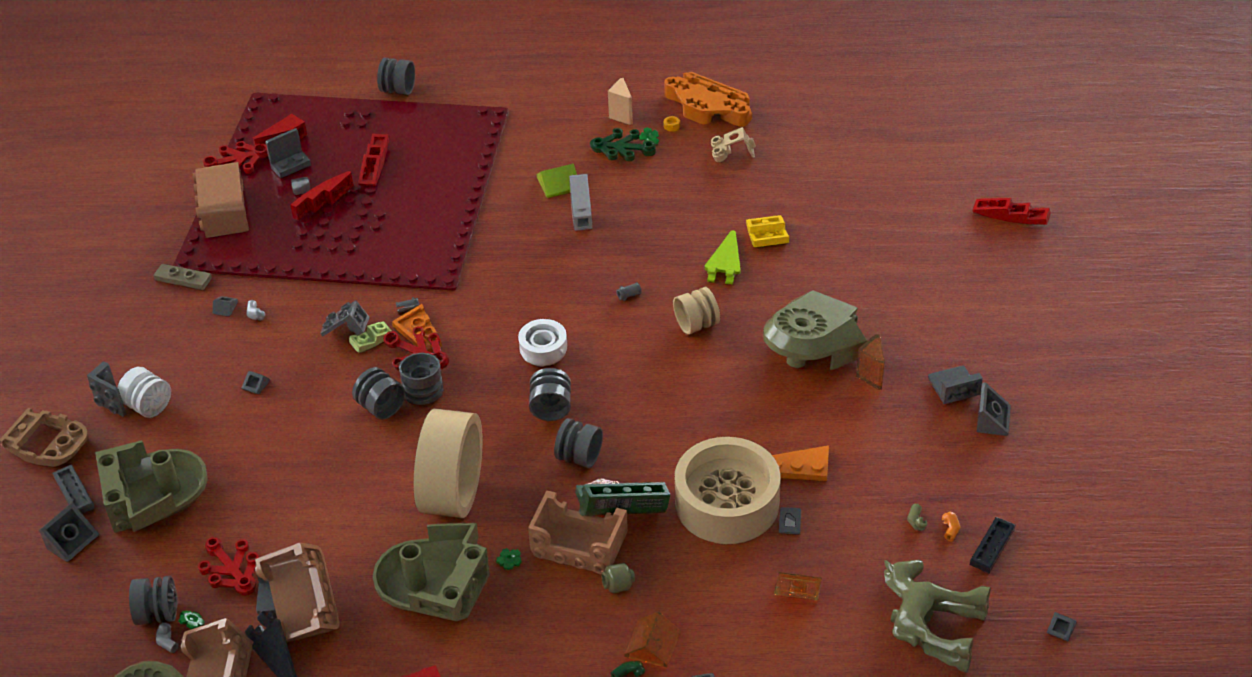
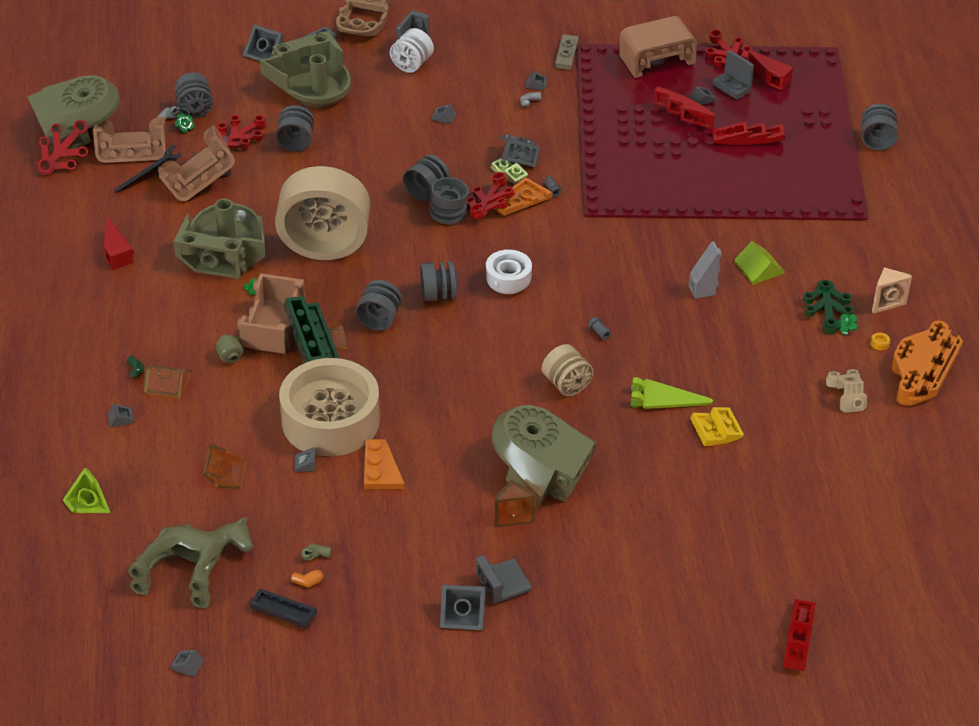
camera: 80 degrees right, 0 degrees up
(254, 502) = (294, 128): none -> dark grey wheel

